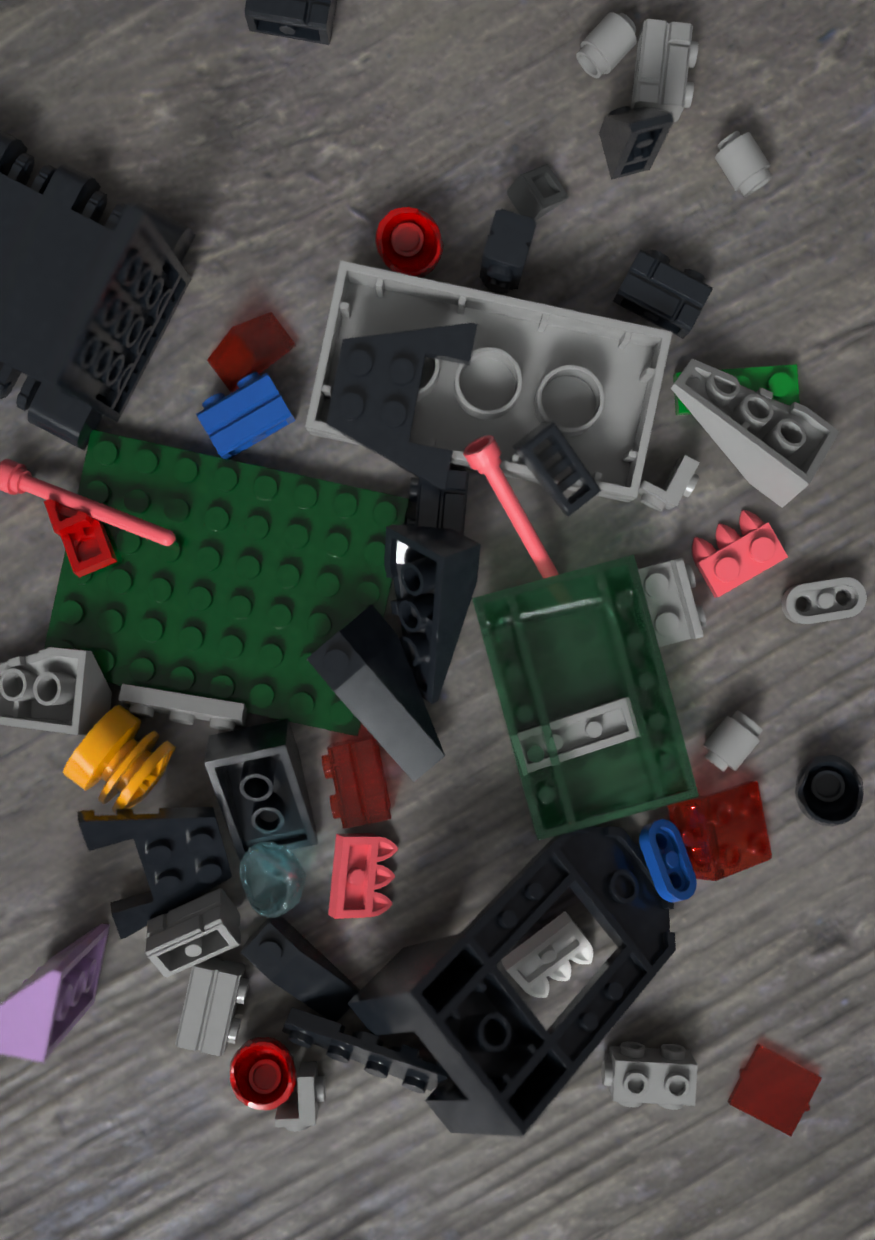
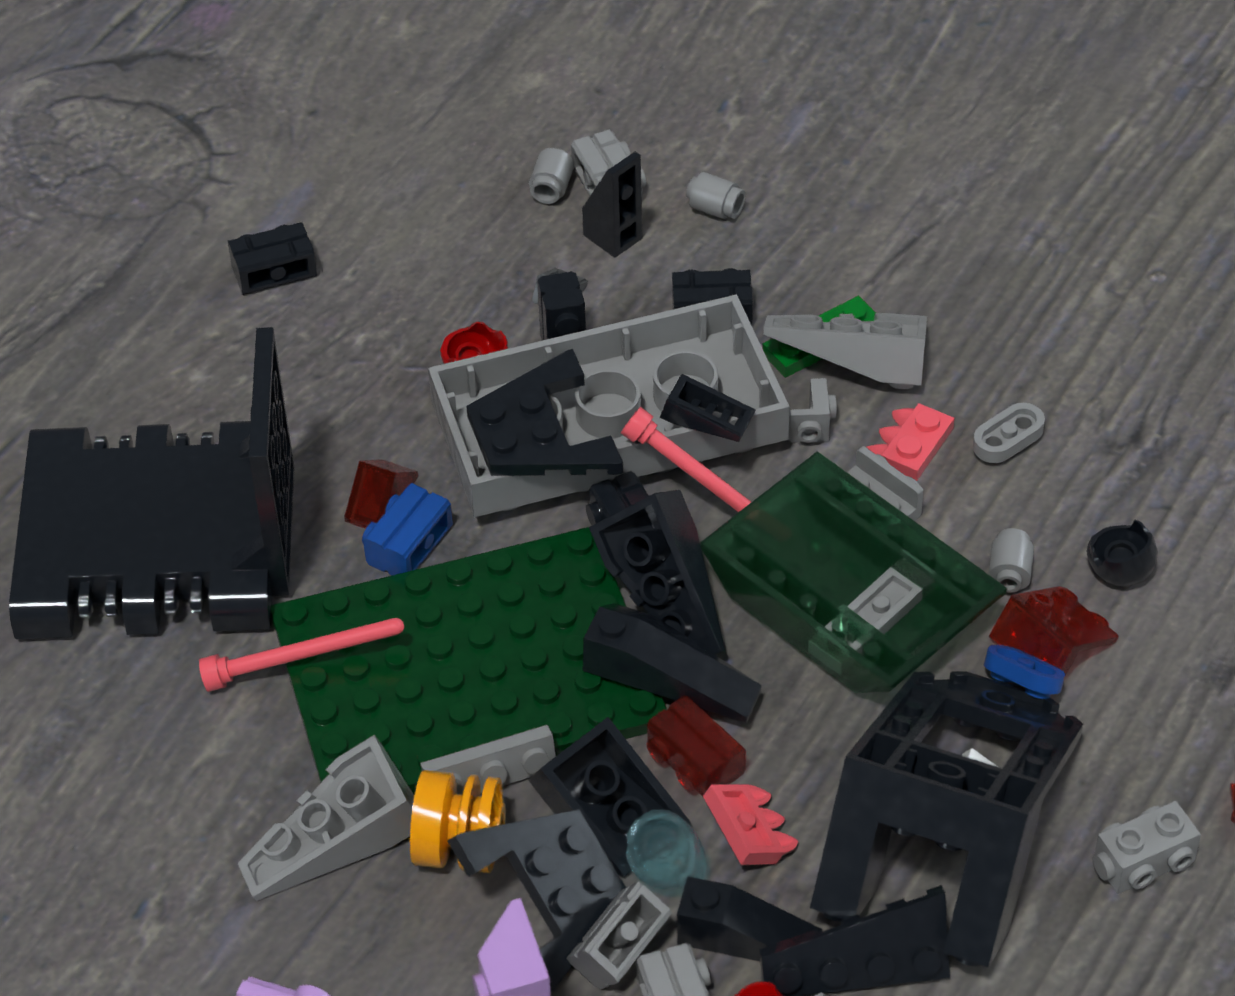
camera: 30 degrees left, 40 degrees down
(82, 537) = (311, 675): red slope -> none

